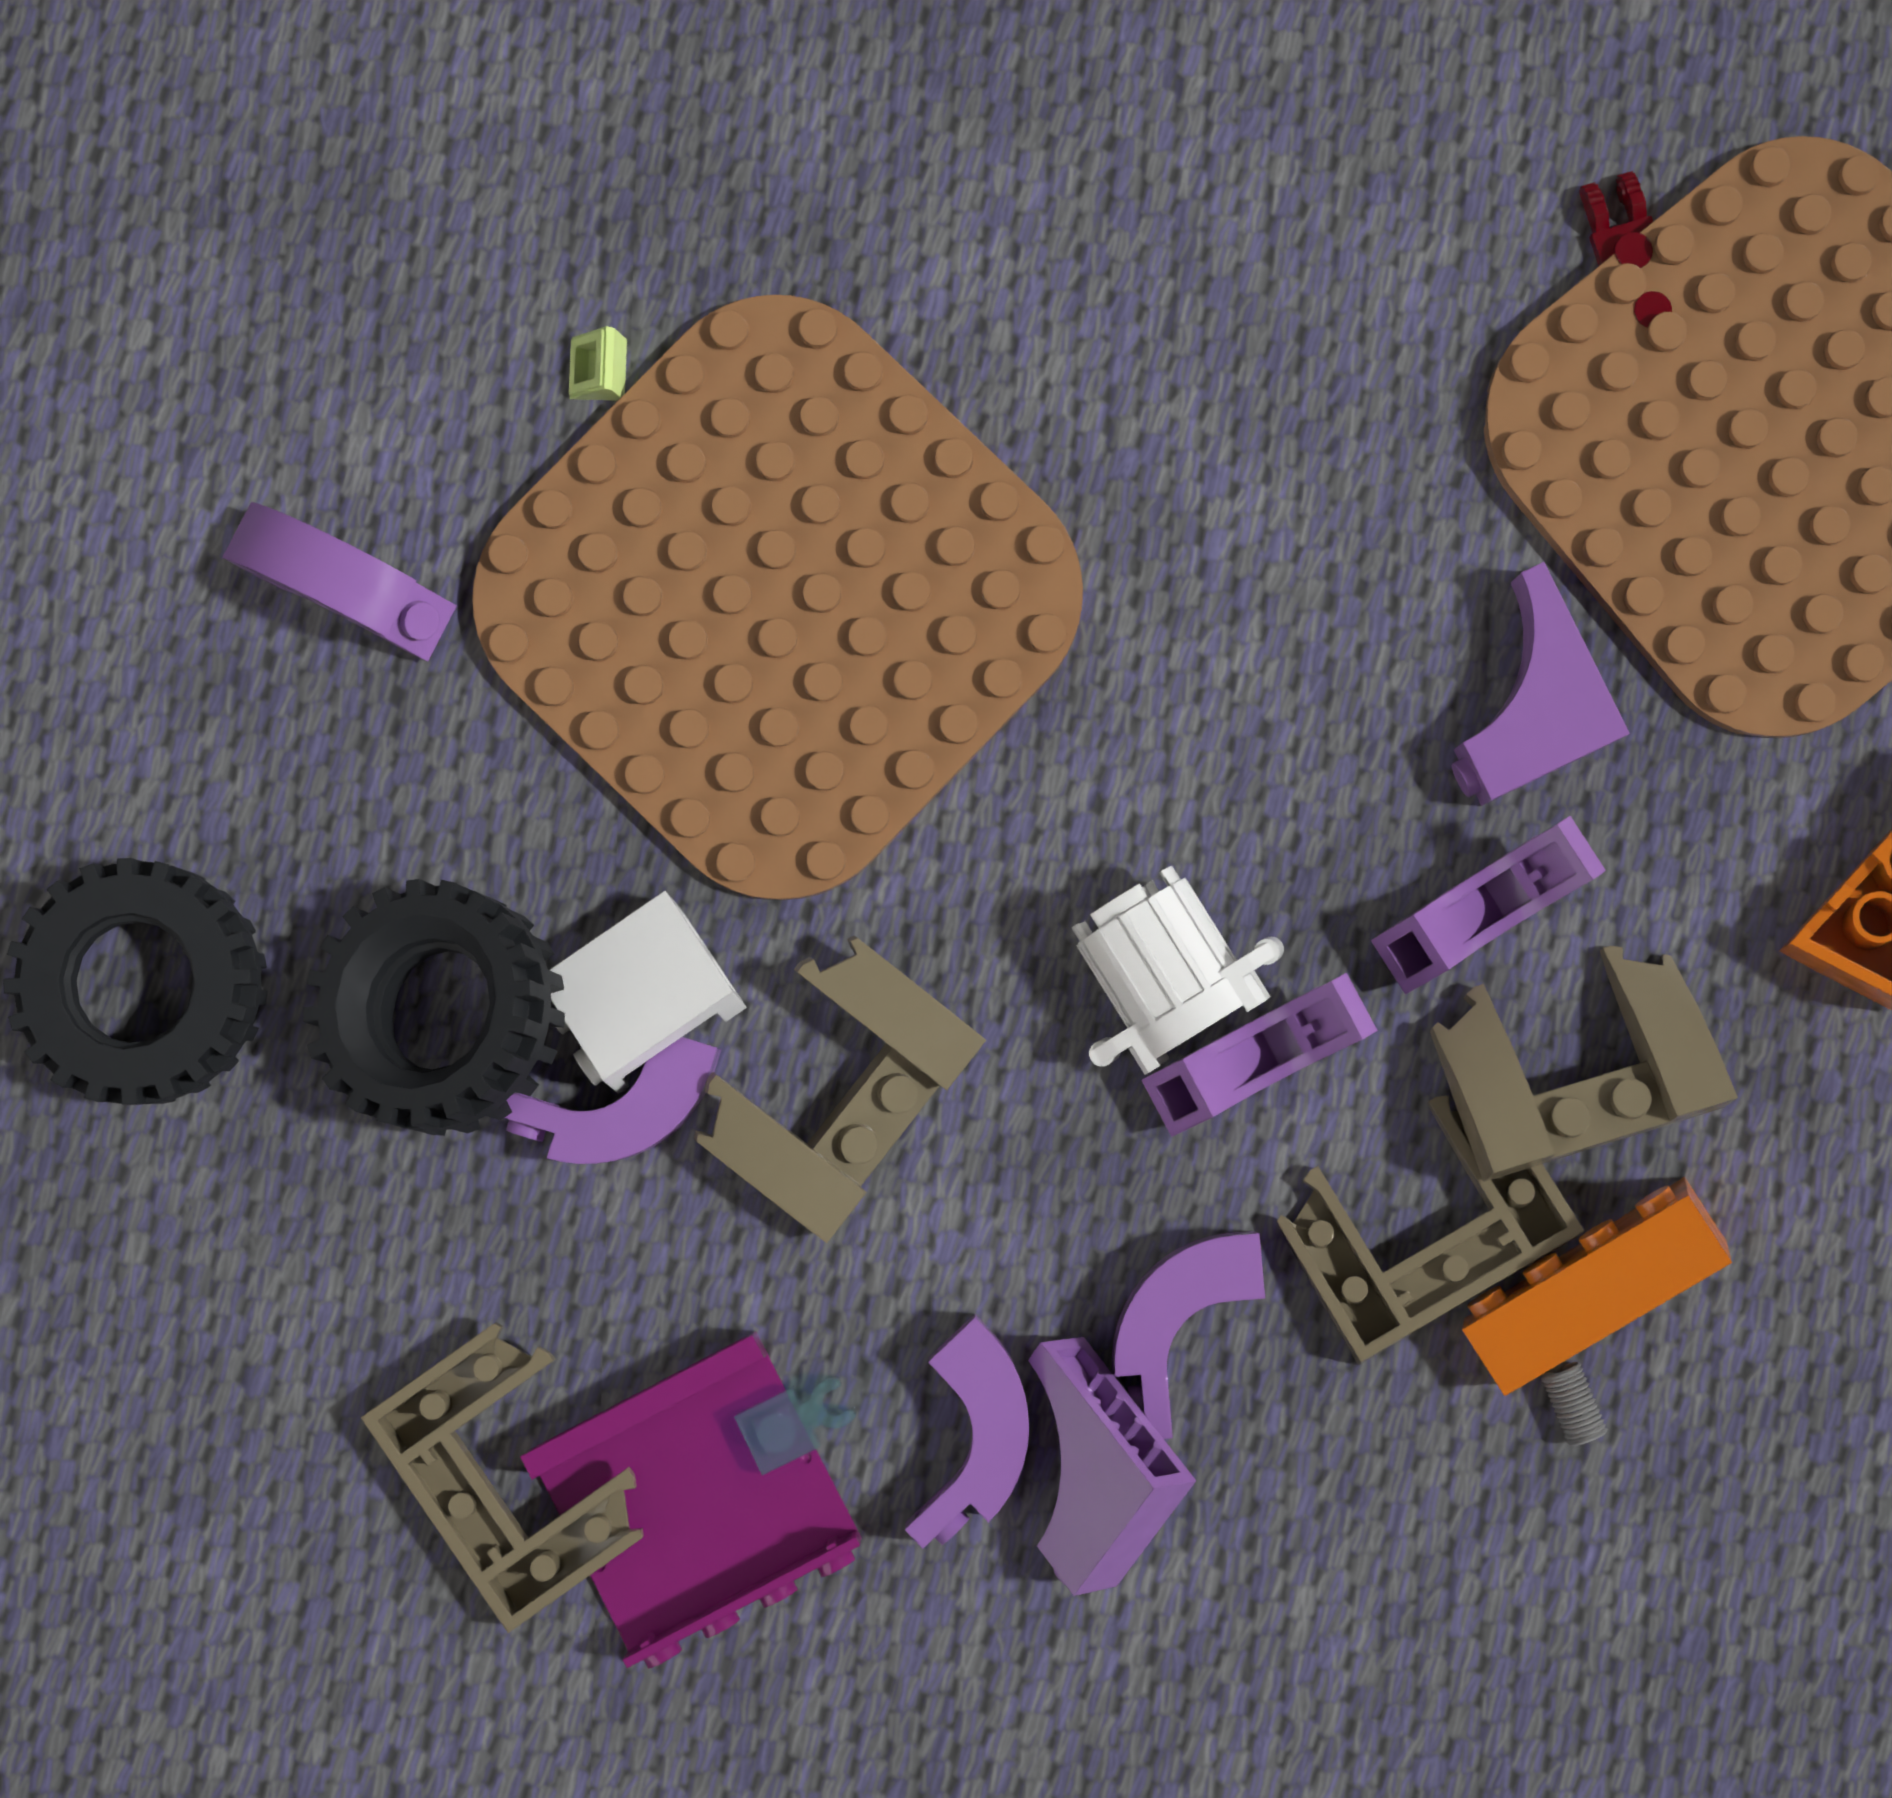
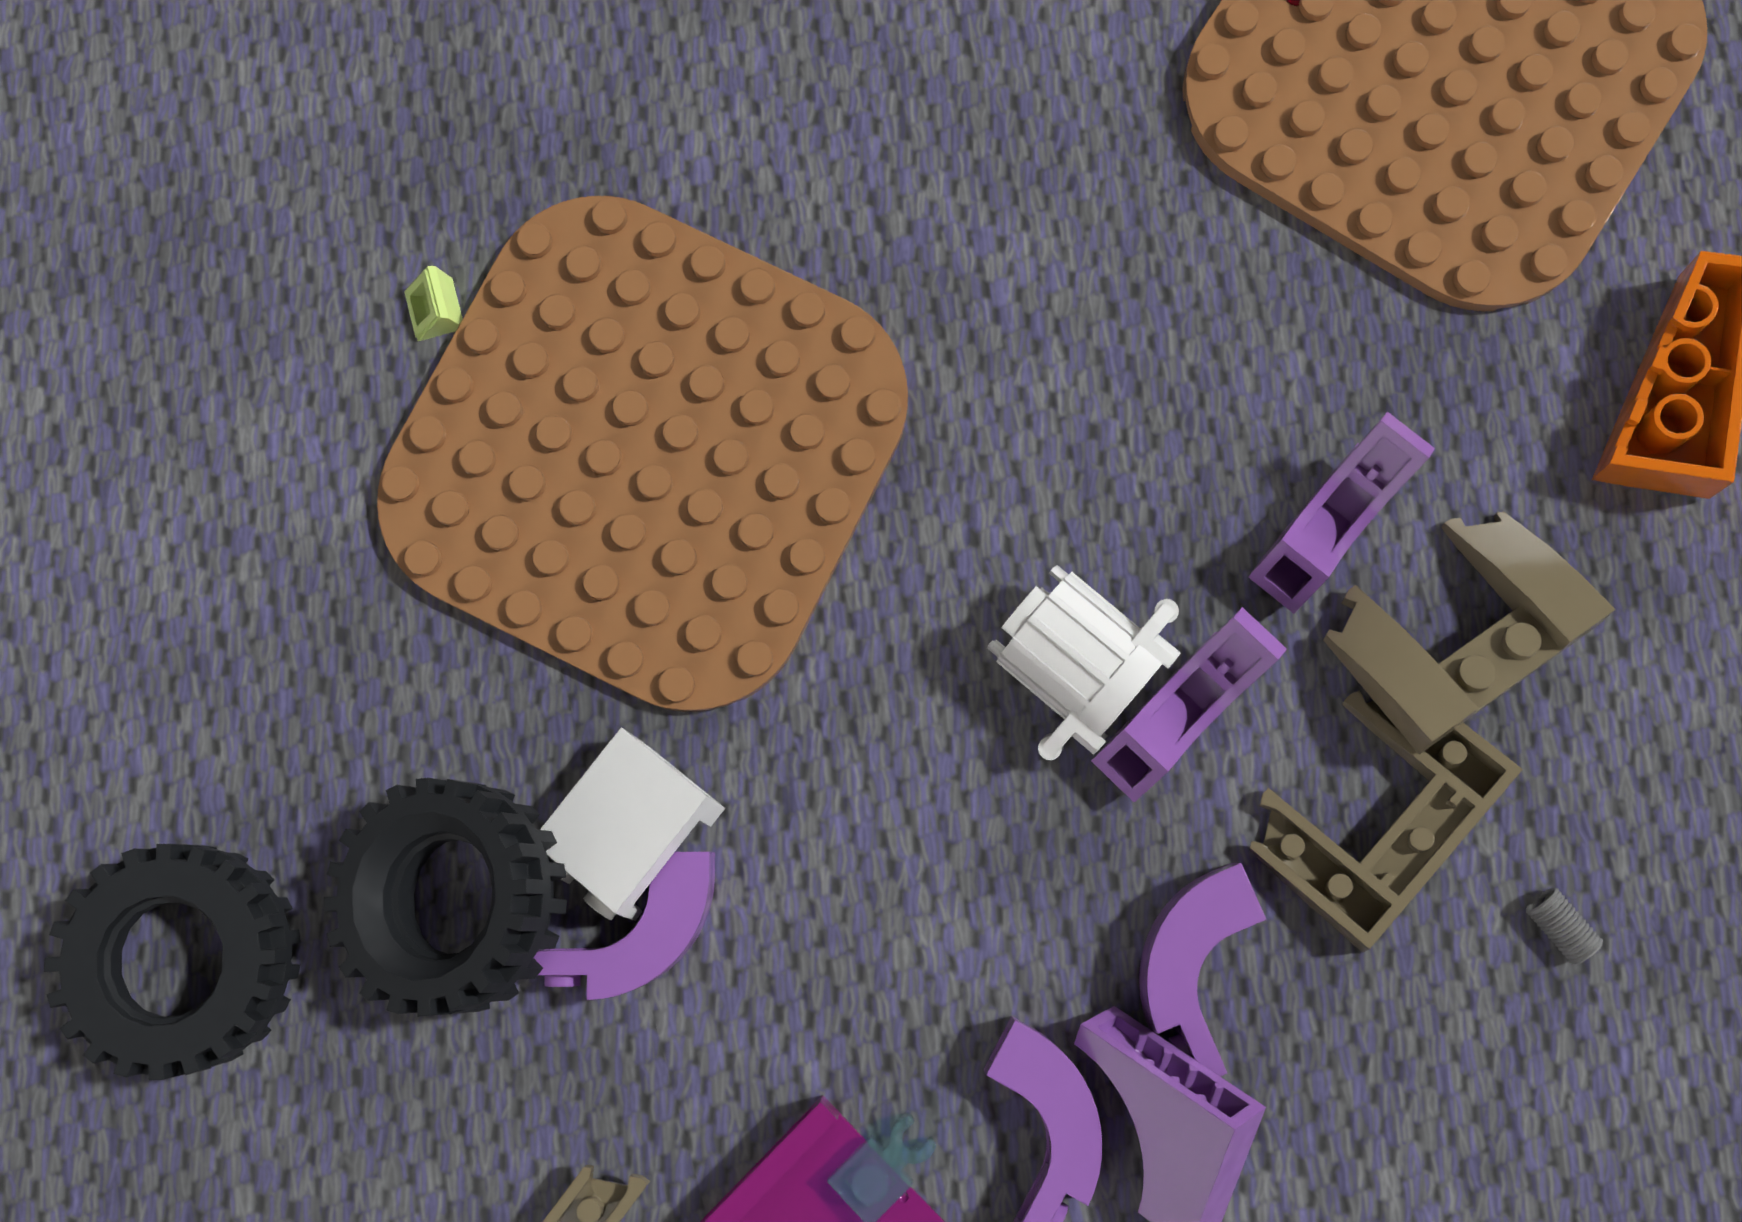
camera: 15 degrees left, 5 degrees down
(339, 579) = (259, 546): medium lavender arch -> none
(824, 1177) = (839, 938): dark tan wedge -> none
(1555, 707) = (1333, 330): medium lavender arch -> none
(1596, 1286) = (1552, 814): orange wedge -> none

